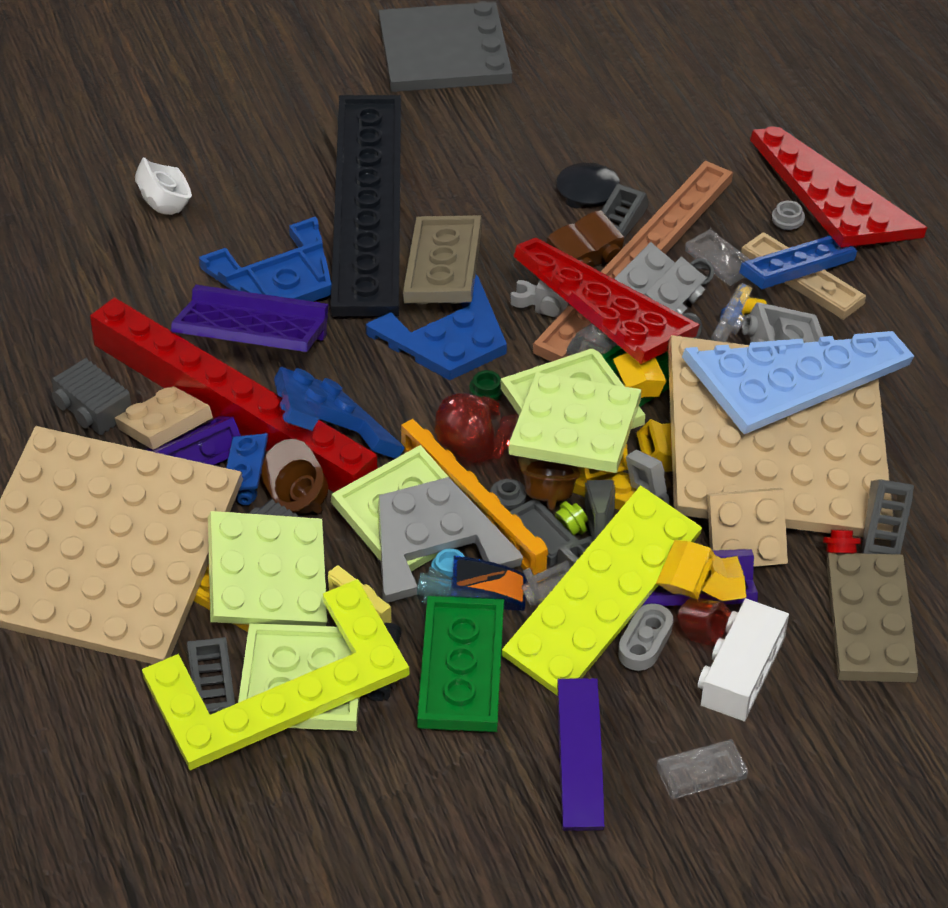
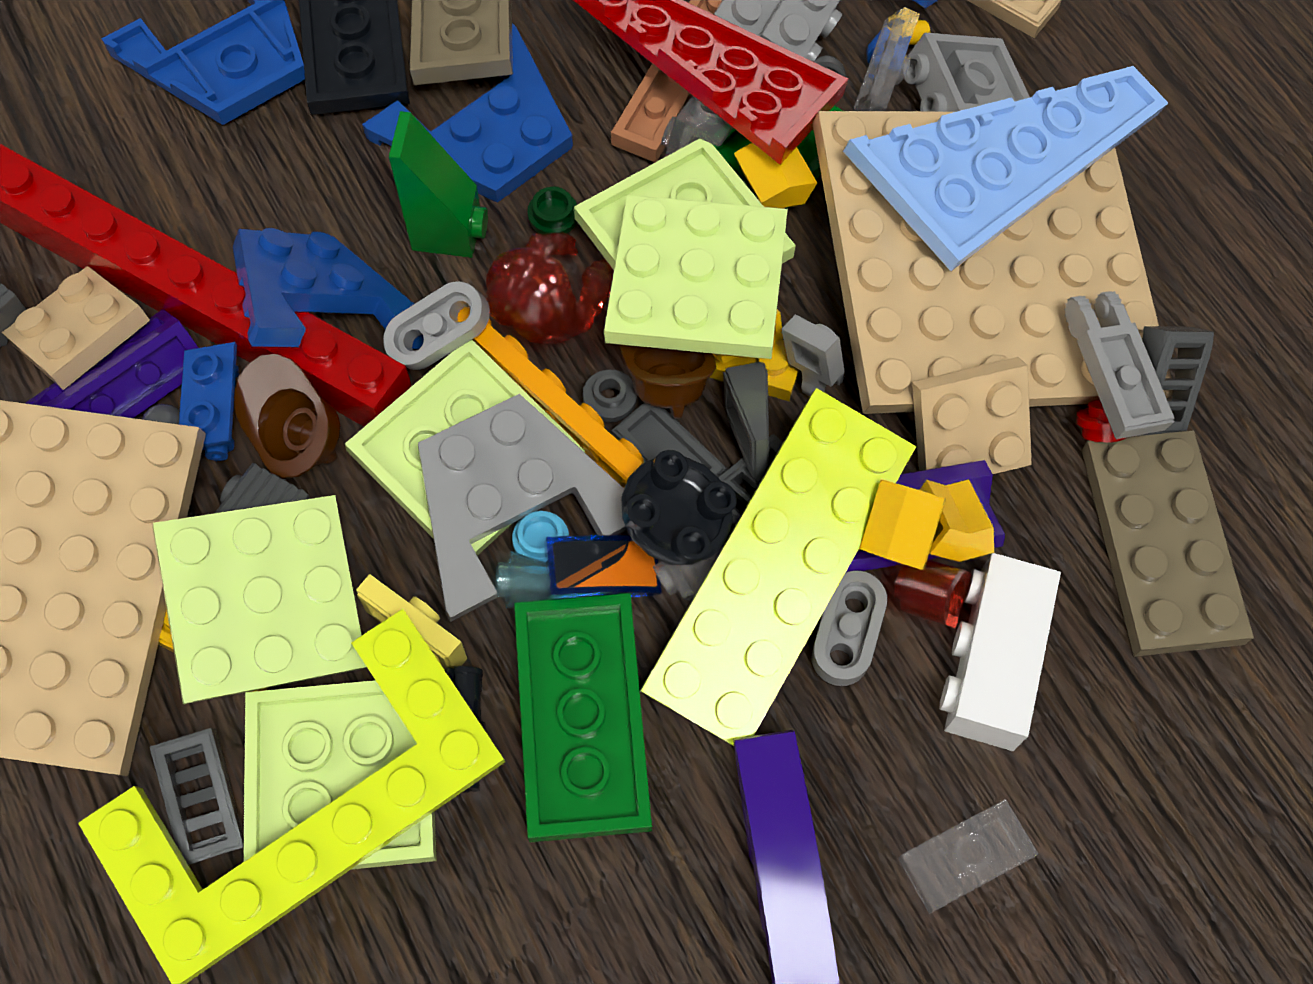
camera: 10 degrees left, 20 degrees up
(253, 318) = (175, 124): dark purple fence -> none
(400, 433) = (438, 323): none -> light grey plate
(410, 363) = (434, 193): none -> green slope
(541, 547) = (677, 509): none -> black dish
(542, 296) = (606, 49): light grey plate -> none
(572, 517) = (710, 429): lime plate -> none
(656, 442) = (815, 284): yellow piece -> none
(850, 503) = (1119, 365): none -> light grey hinge

